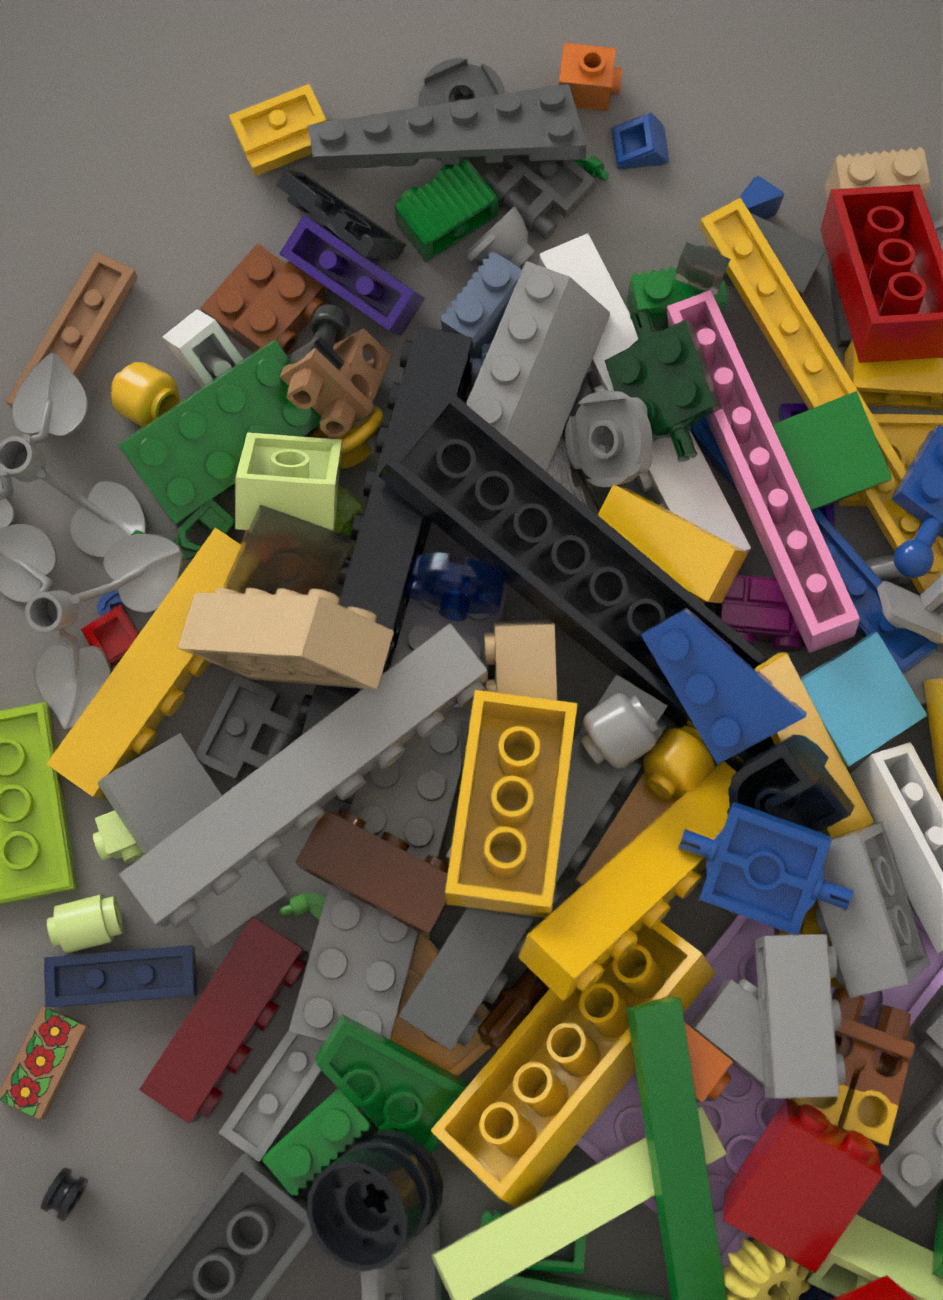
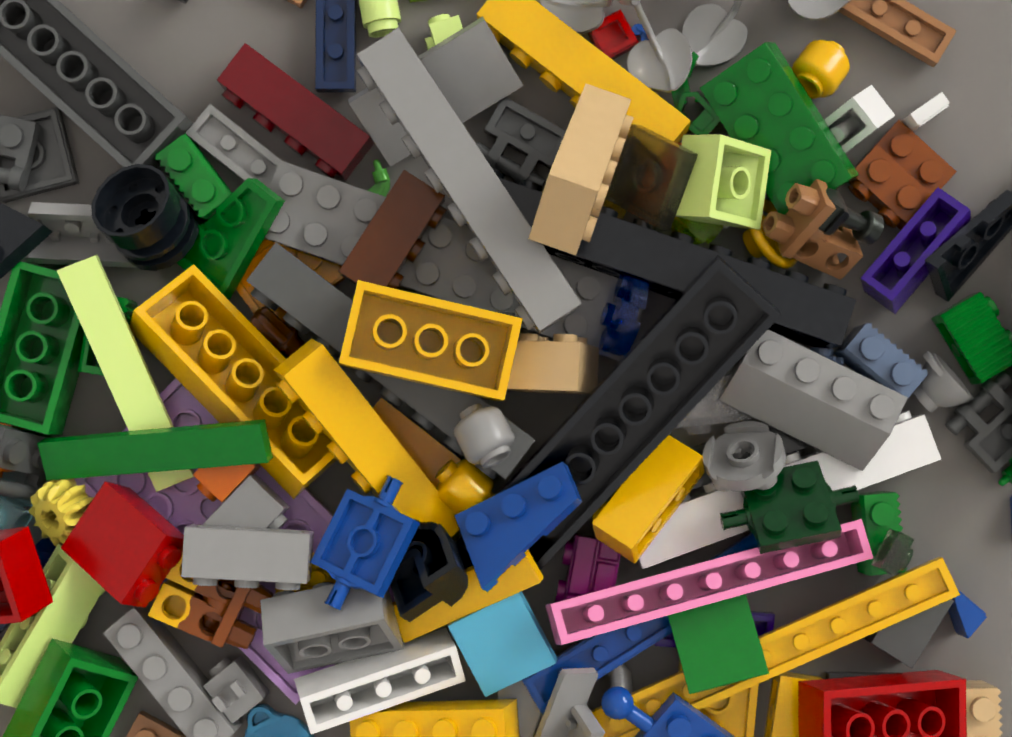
camera: 95 degrees right, 10 degrees up
(190, 277) = (926, 112): none -> white tile

